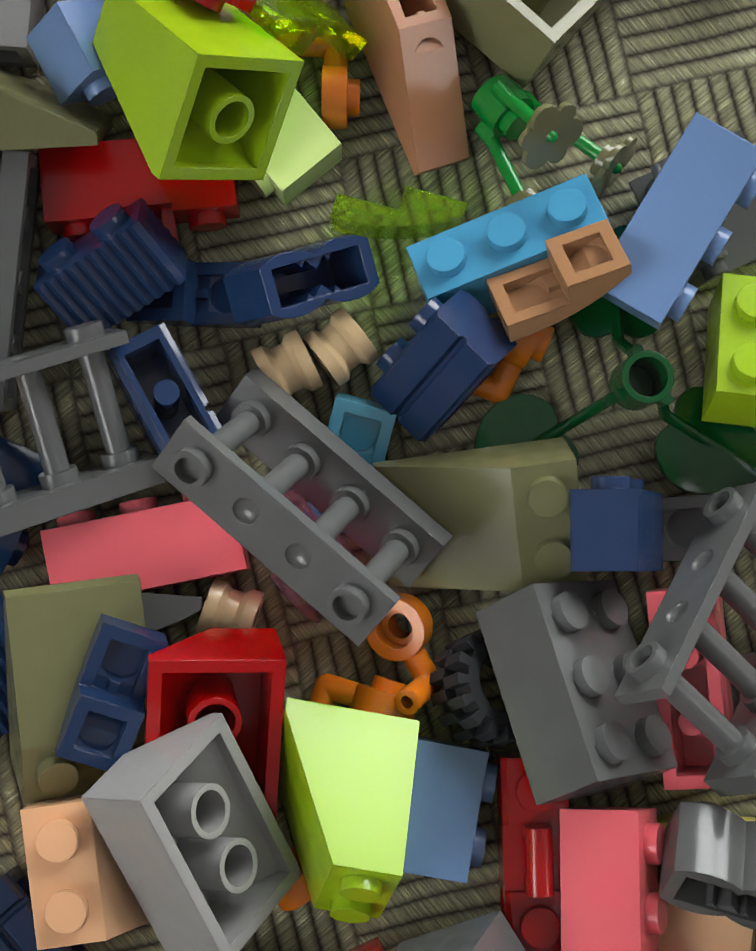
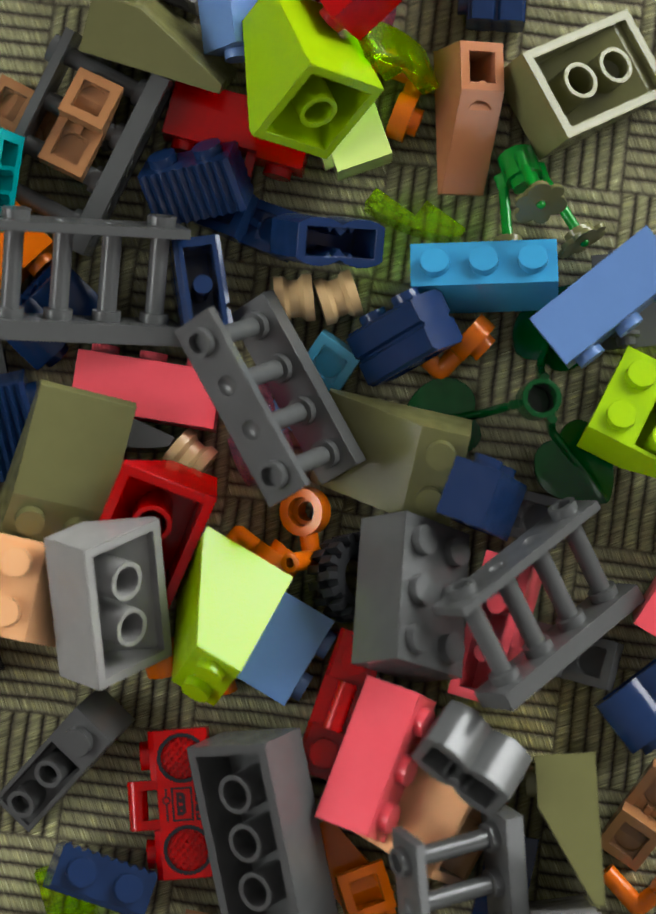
camera: 30 degrees right, 0 degrees up
(108, 694) = (86, 477): dark blue slope -> none
(574, 275) = (521, 307): medium nougat slope -> none

